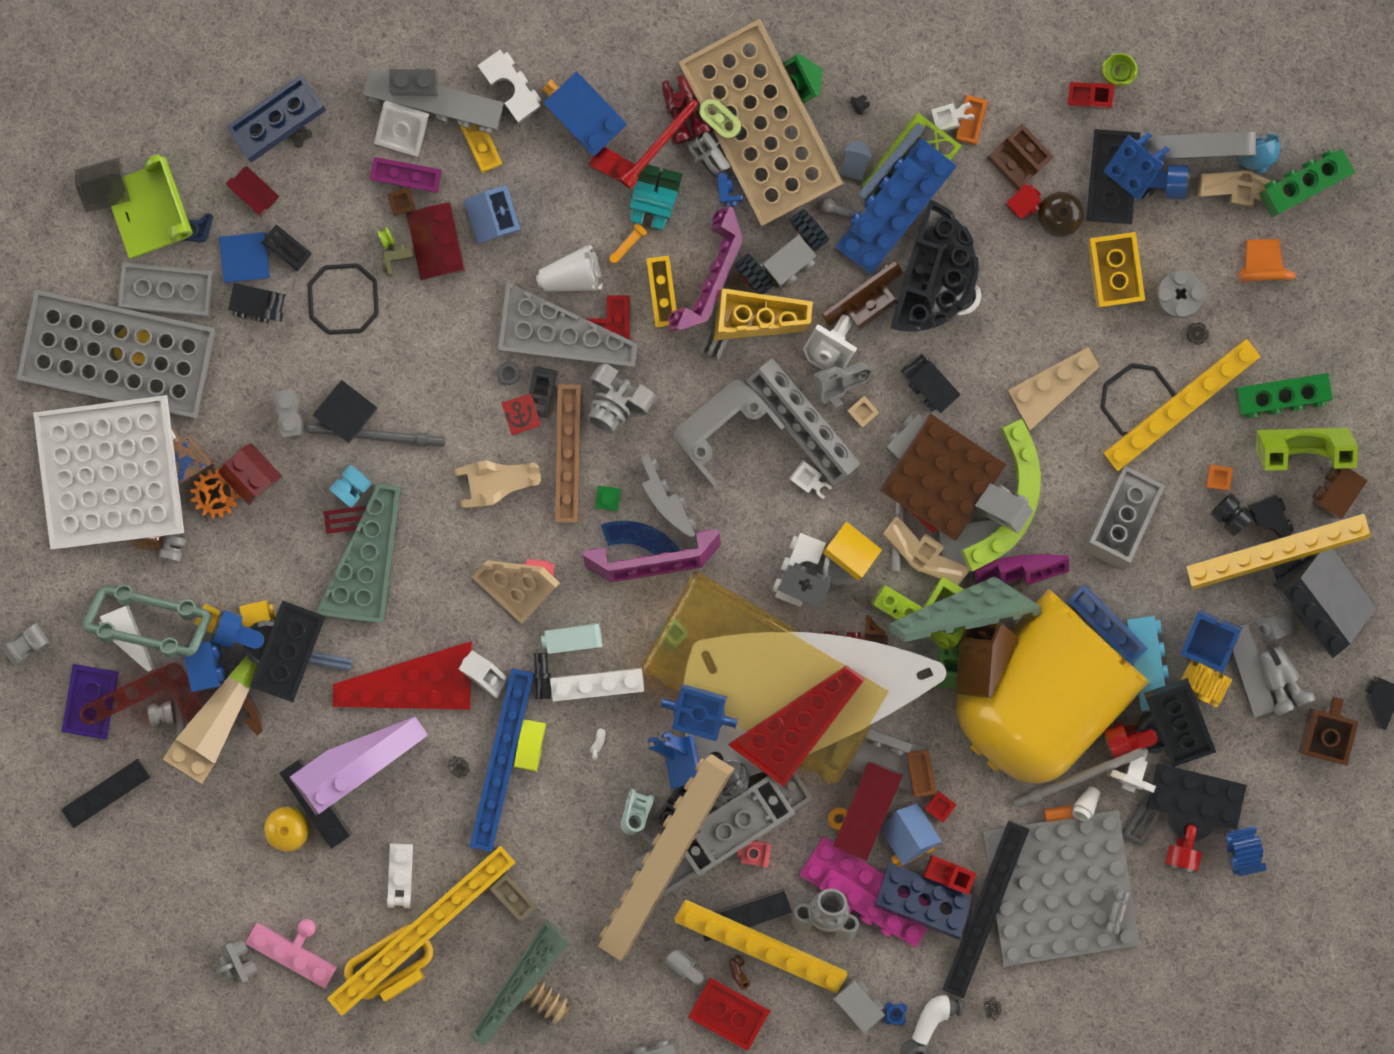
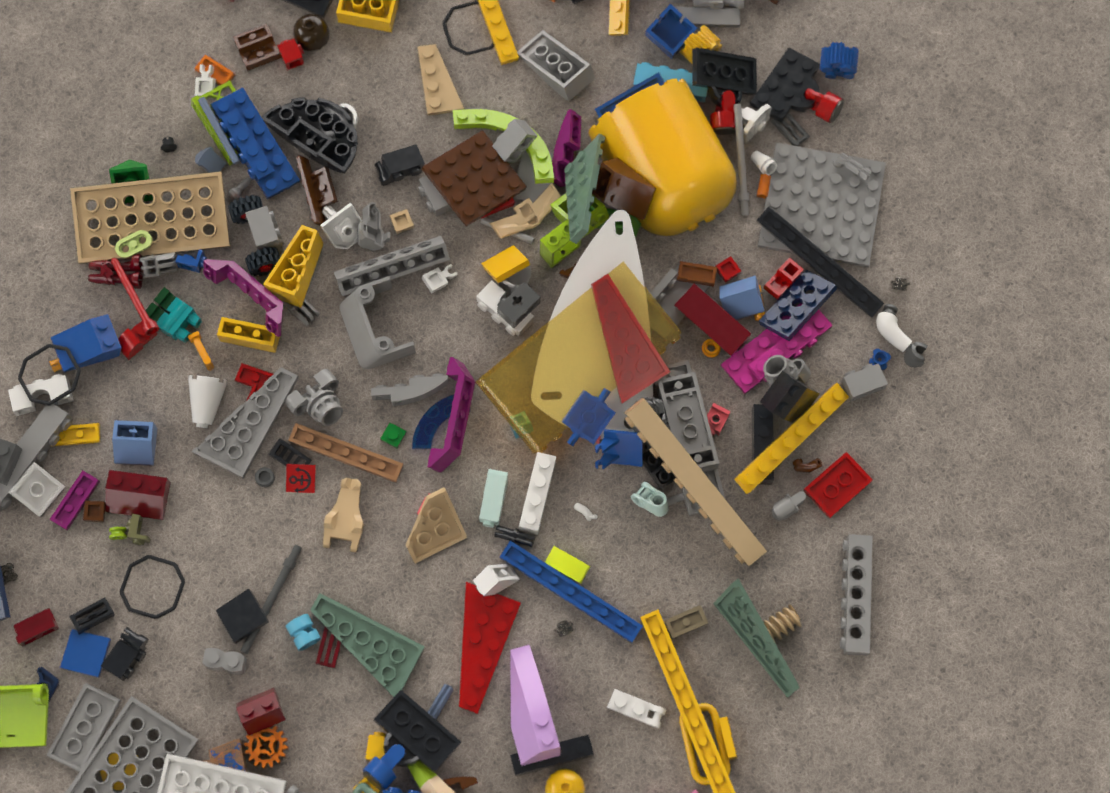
camera: 75 degrees left, 15 degrees down
(506, 70) = (35, 354): none -> black piece
(801, 928) = (788, 397): none -> black slope

